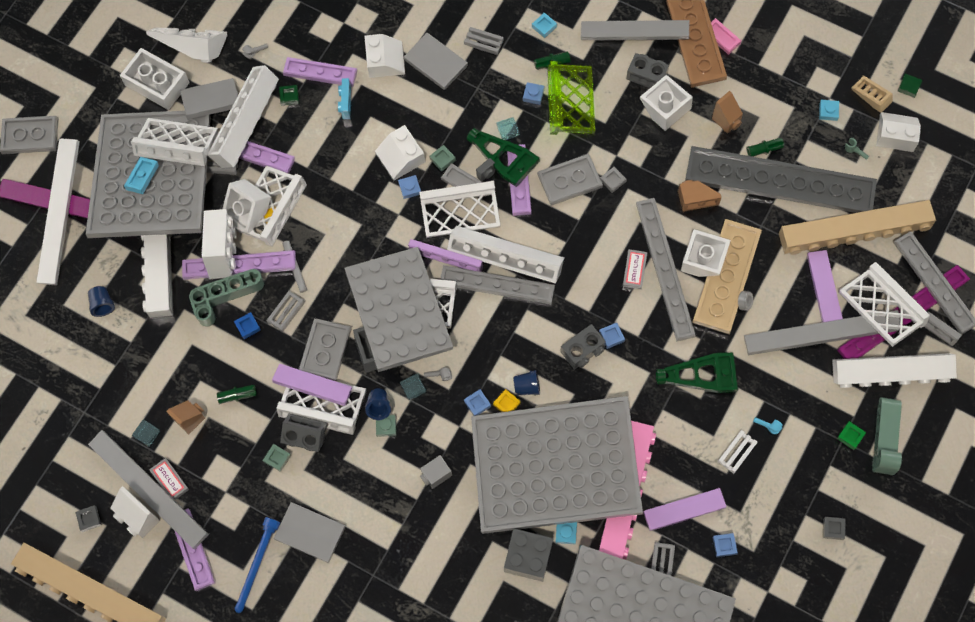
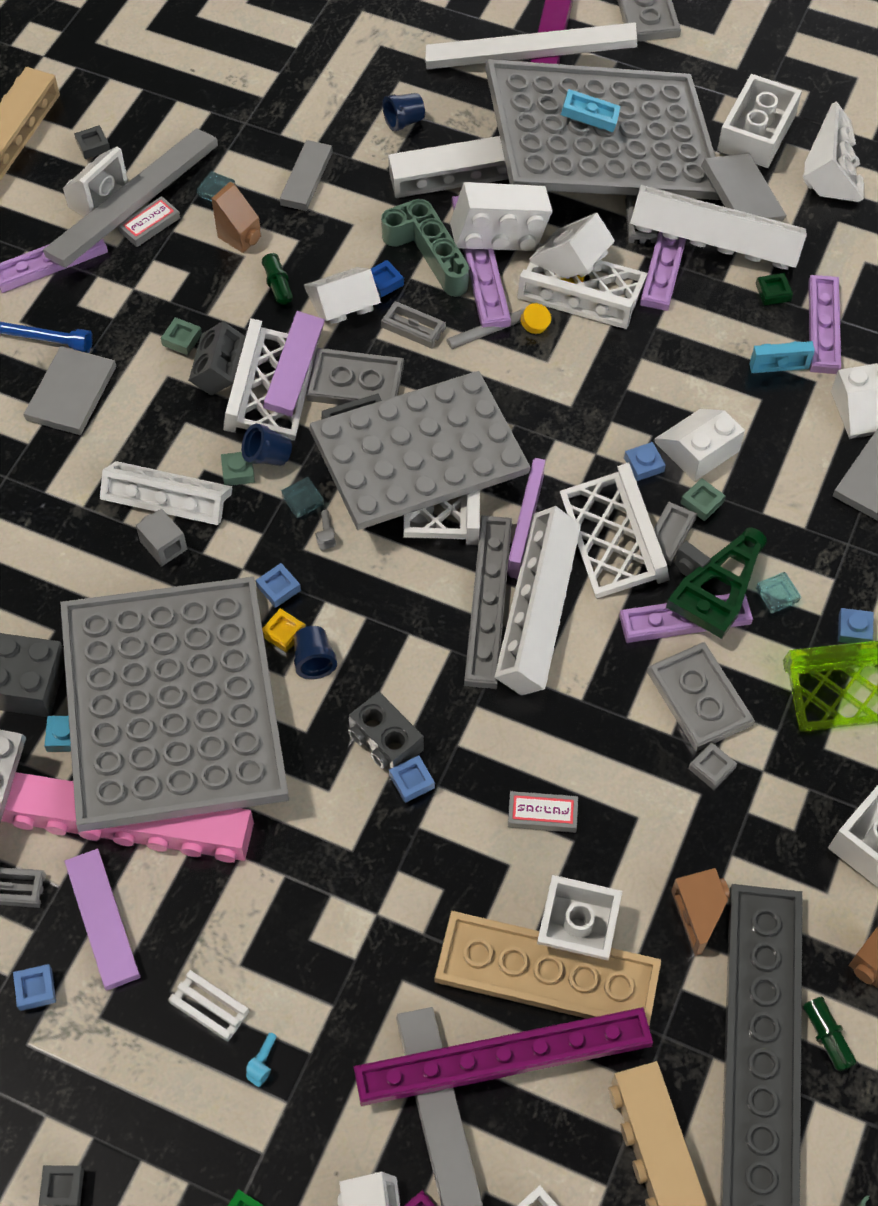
camera: 80 degrees right, 10 degrees down
(144, 371) = (306, 175): none -> light grey tile
(173, 150) = (639, 141): white fence -> none
(250, 53) = (837, 231): light grey hand -> none
(256, 352) = (343, 294): none -> white slope
(293, 235) = (535, 318): none -> yellow tile
(402, 470) = (159, 489): none -> white fence
(665, 270) = (560, 859): light grey tile -> none
(724, 373) = (358, 972): dark green plate -> none
(745, 300) = (500, 1004): light grey tile -> none
(775, 301) = (502, 1056): none -> magenta tile
(824, 286) = (548, 1161): lavender tile -> none

